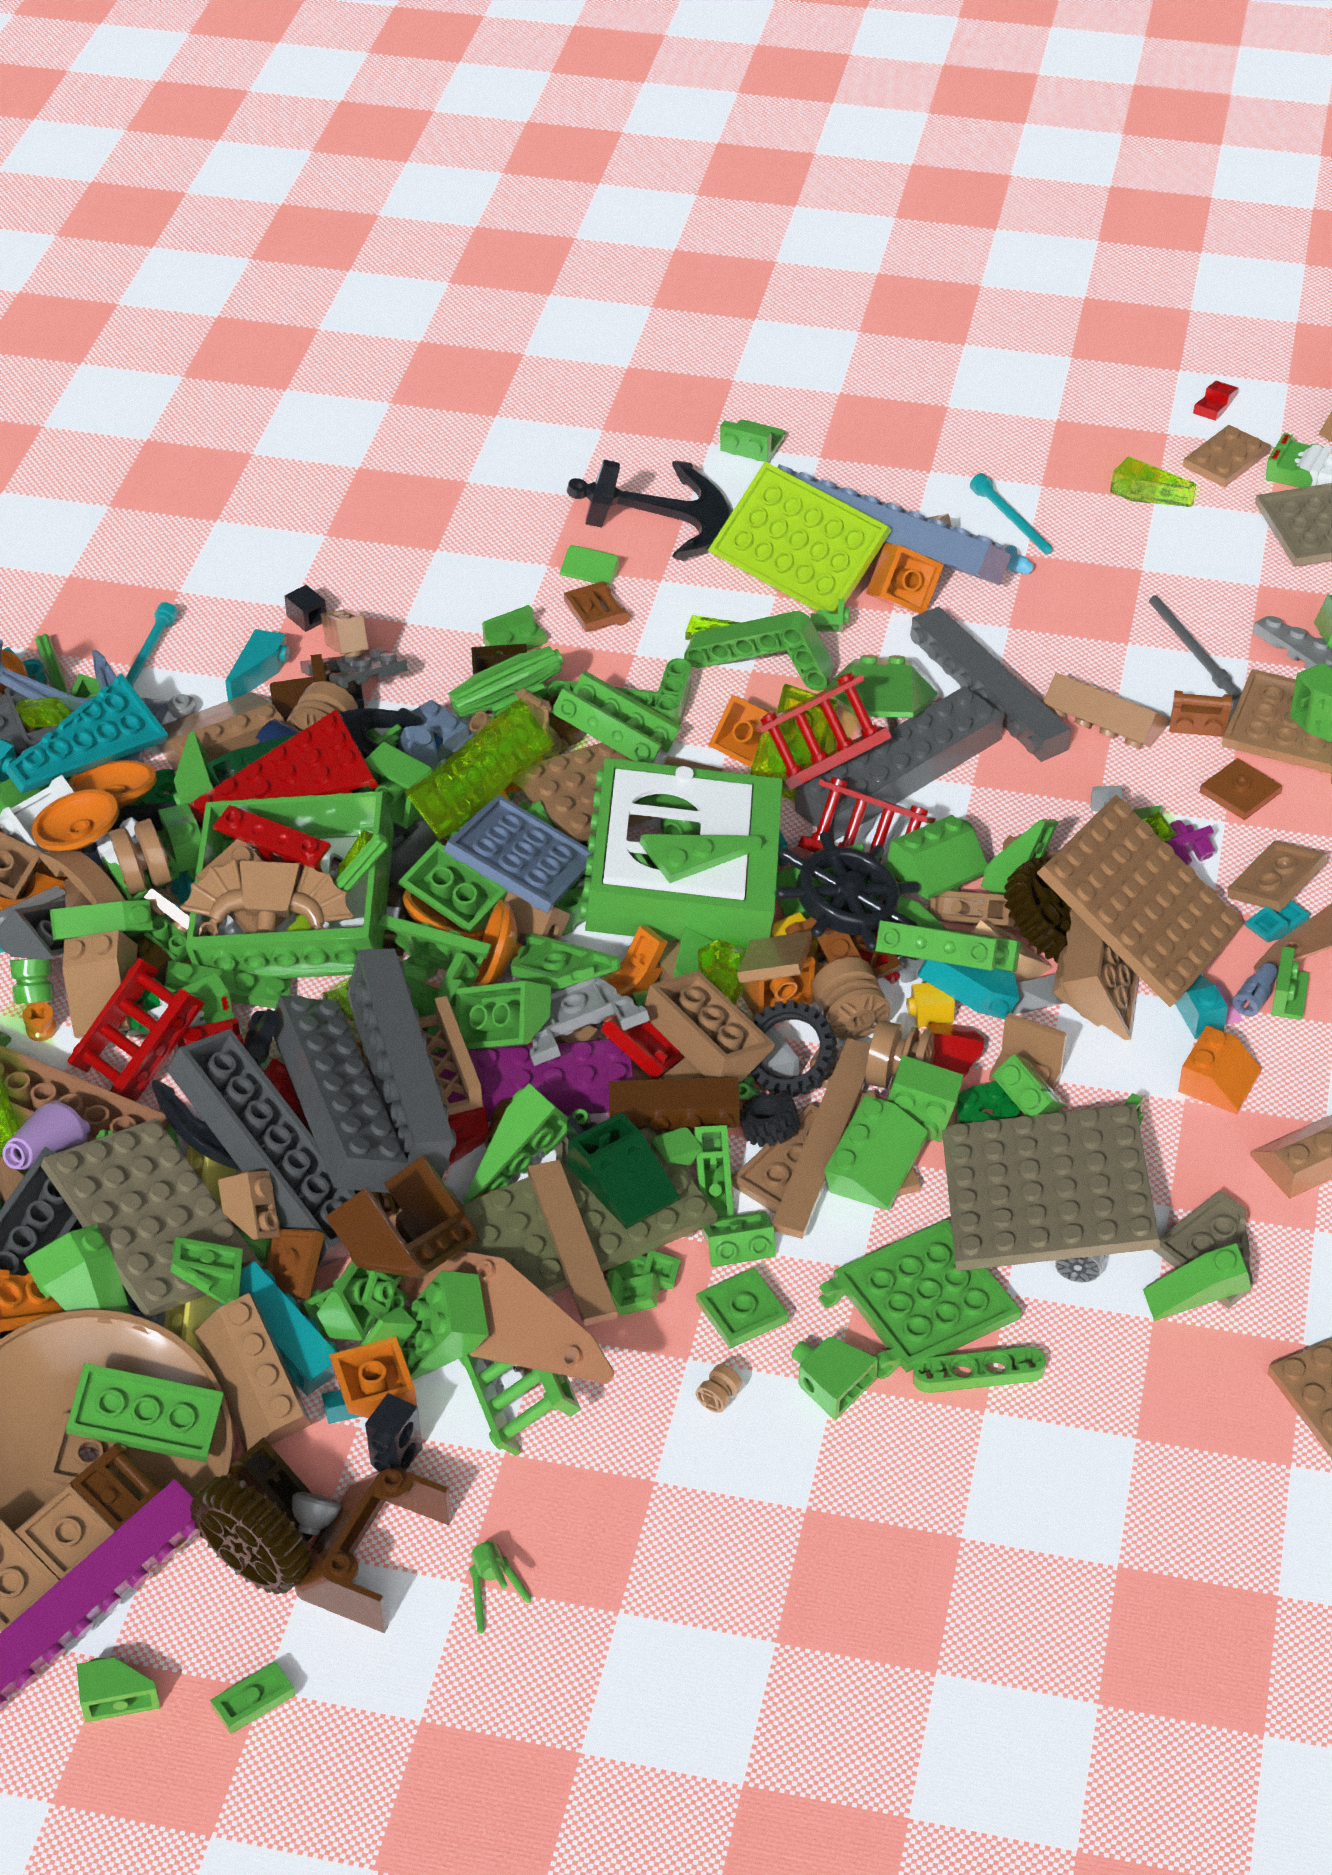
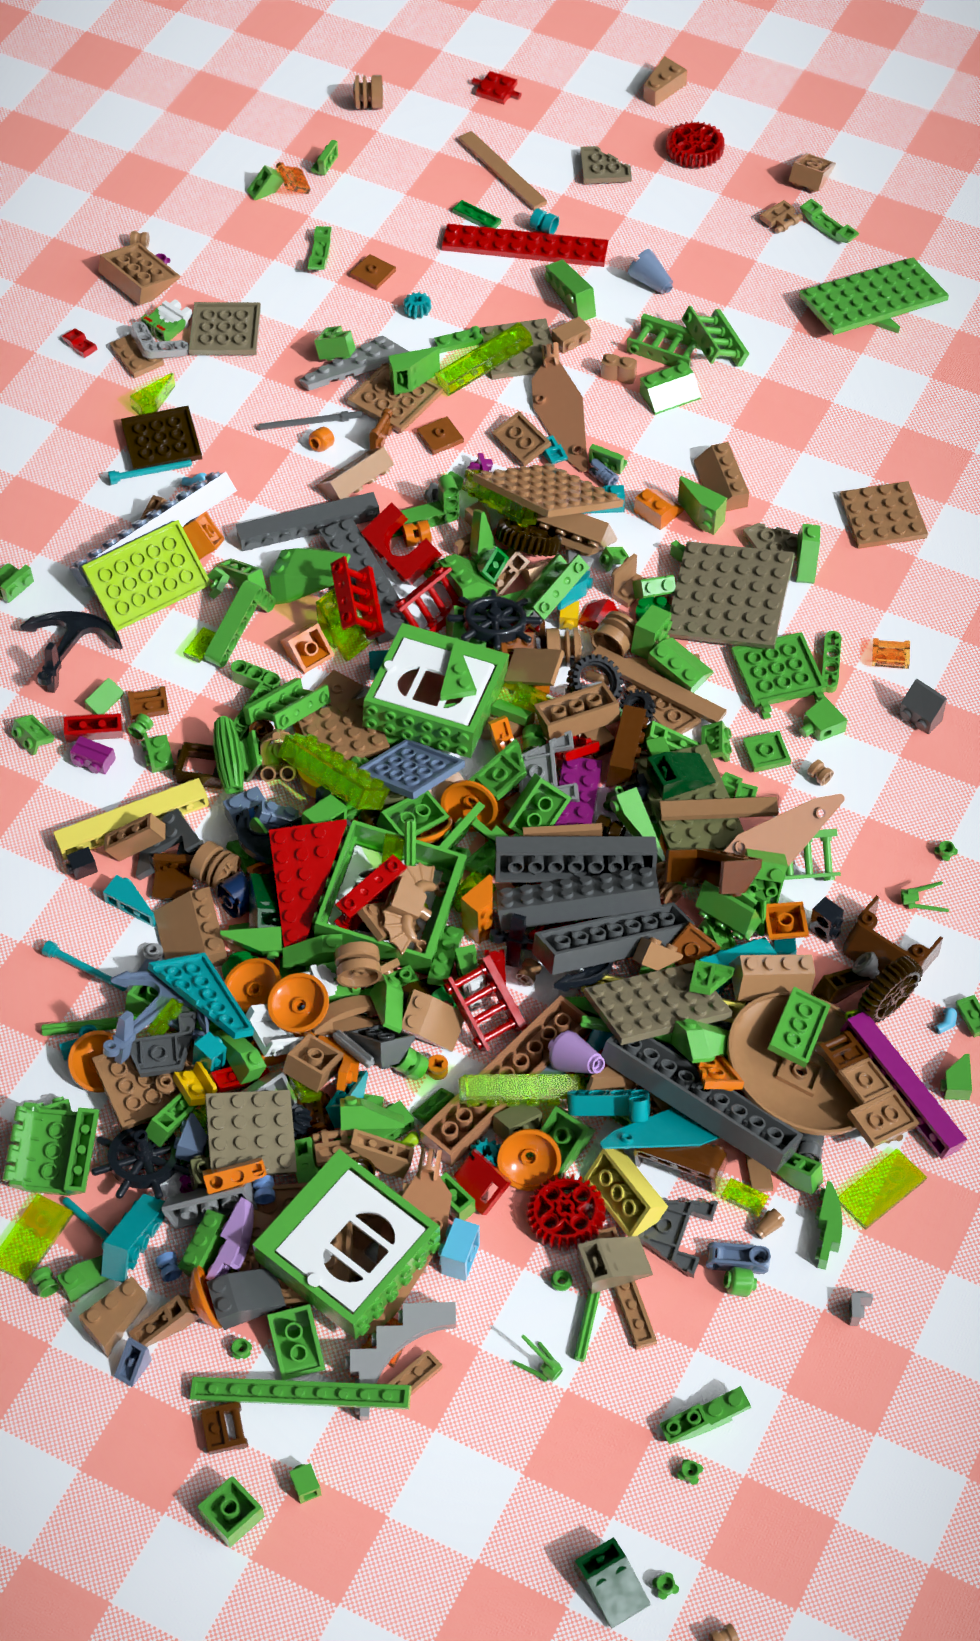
camera: 75 degrees left, 10 degrees up
(238, 1662) = (949, 1020): none -> medium azure arm
(299, 973) = (478, 910): none -> orange slope
(388, 629) = (91, 832): none -> light yellow brick
(485, 576) = (92, 755): none -> magenta brick
(507, 517) = (31, 733): none -> bright green bracket
(527, 561) = (93, 727): none -> red brick
(549, 607) = (140, 726): none -> bright green wheel
(605, 1597) = (948, 846): none -> bright green plate
(854, 639) = (241, 572): none -> bright green slope
(908, 1513) = (923, 706): none -> dark grey slope
(967, 876) = (492, 564): none -> green slope
(979, 751) = (379, 535): none -> red arch
(1017, 797) = (422, 529): none -> orange wheel
(1021, 1456) = (891, 654): none -> clear orange plate
(1050, 793) = (437, 512): none -> bright green beam
(1077, 511) = (161, 438): none -> dark brown plate
(1083, 1036) = (612, 556): none -> bright green bracket
(1157, 661) = (321, 439): none -> orange head
(1232, 457) = (154, 349): none -> light grey beam
(1232, 1121) = (702, 505): none -> bright green slope

